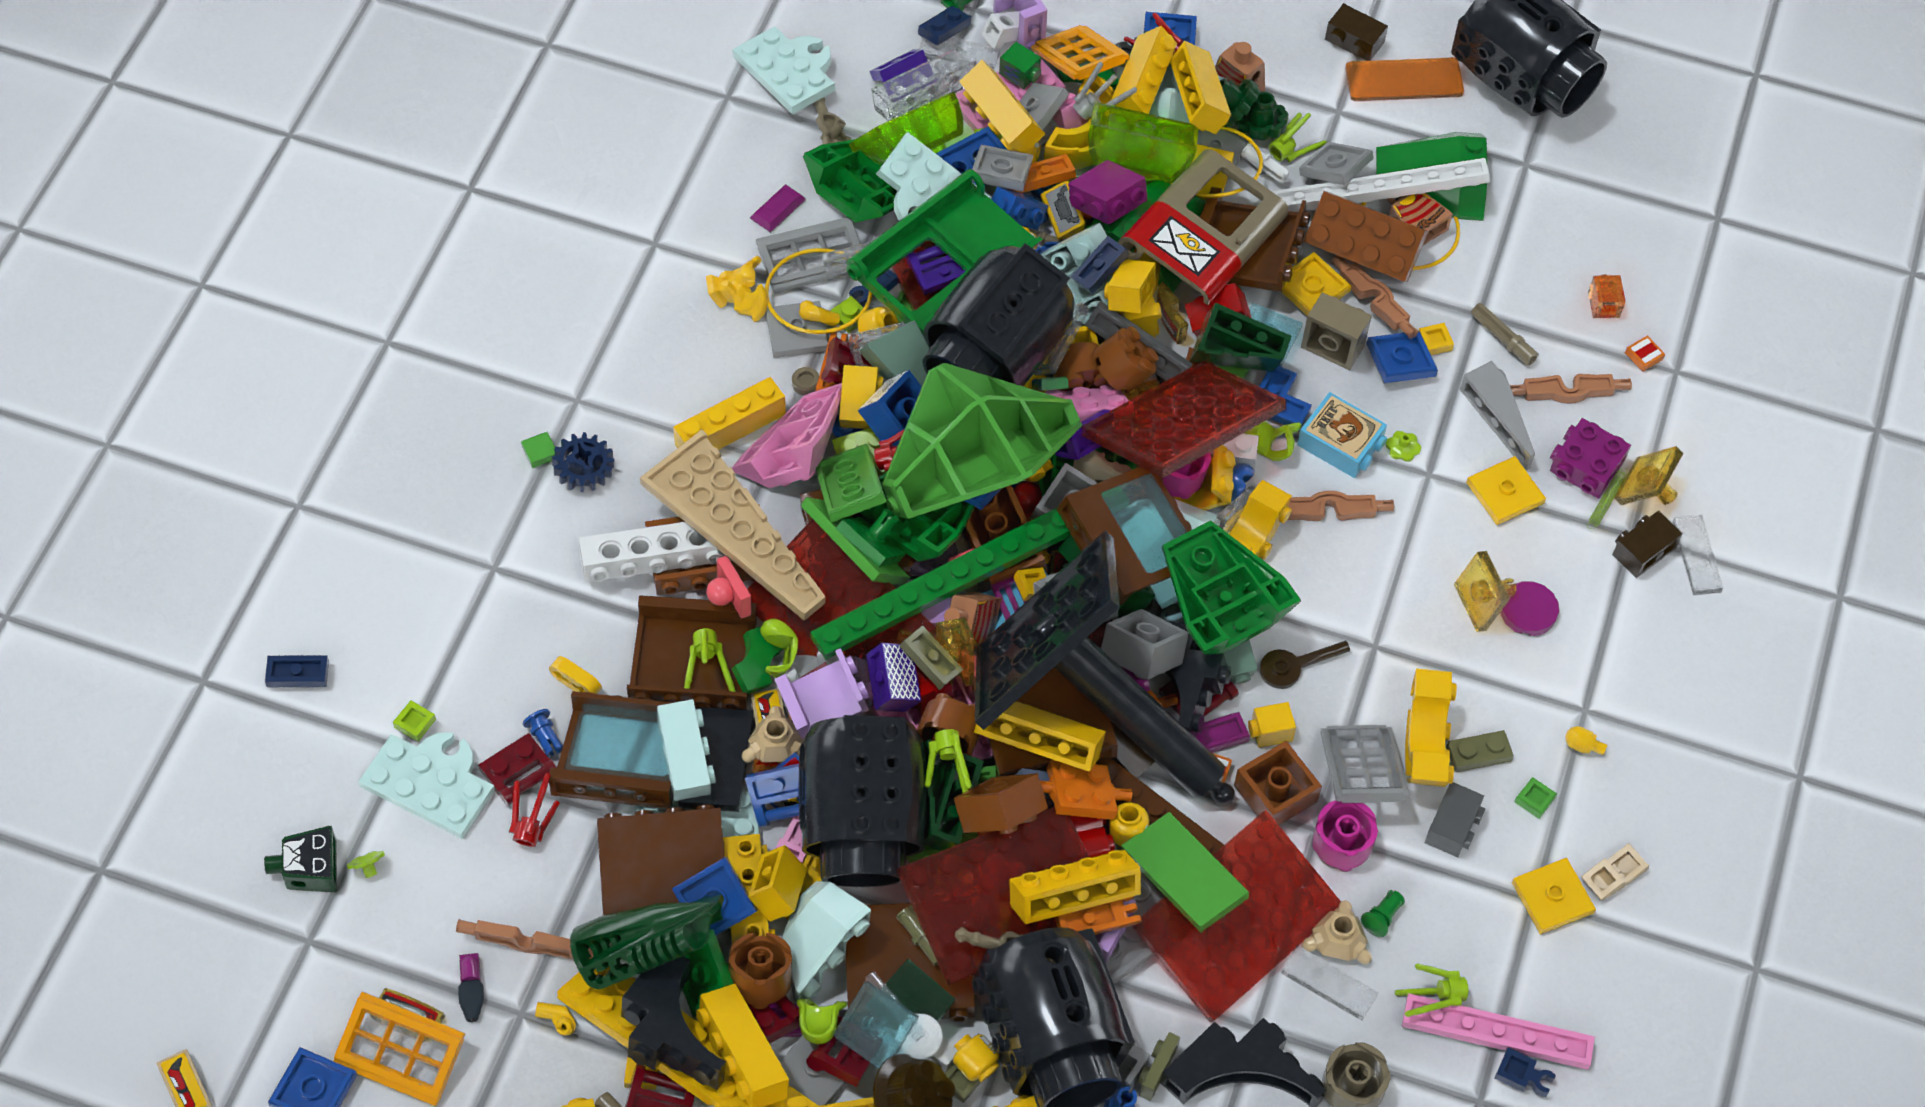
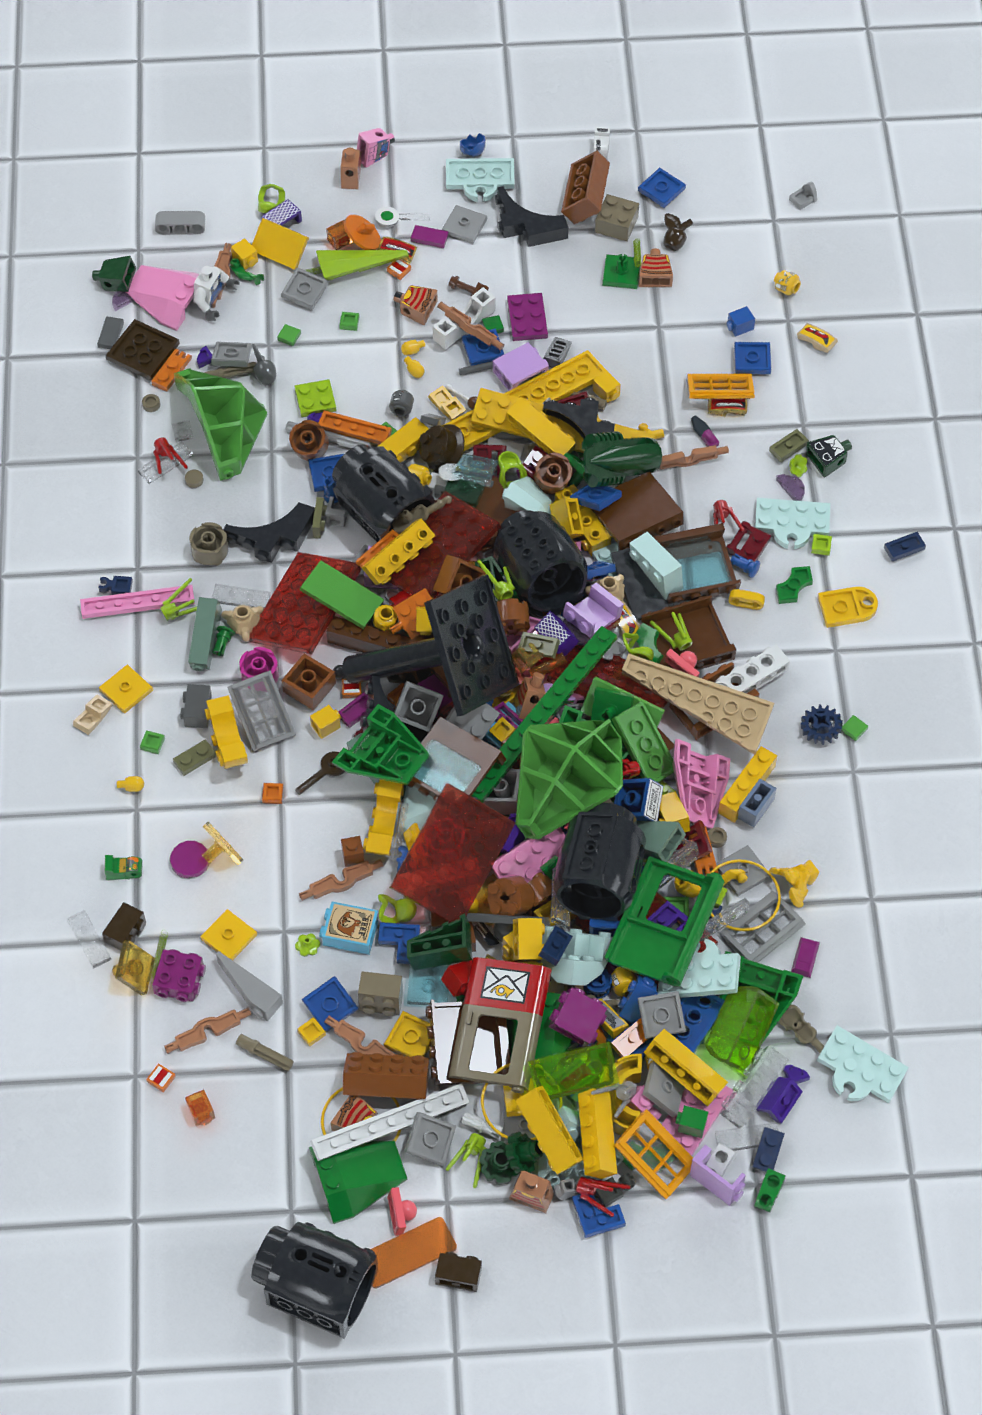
camera: 160 degrees right, 0 degrees up
(357, 903) = (788, 445): none -> olive plate
(393, 837) = (792, 485): none -> clear purple tile
(437, 621) = (847, 606): none -> yellow tile
(479, 686) = (788, 591): none -> green tile
(730, 381) = (756, 802): none -> sand blue brick
(863, 91) = (796, 1074): none -> dark purple tile
(1303, 527) = (352, 851): none -> dark orange brick
(1383, 658) = (272, 793): none -> orange tile
(1399, 111) = (400, 1211): none -> coral tile
(1407, 928) = (204, 633): none -> sand green slope
(1628, 625) = (122, 867): none -> green leg

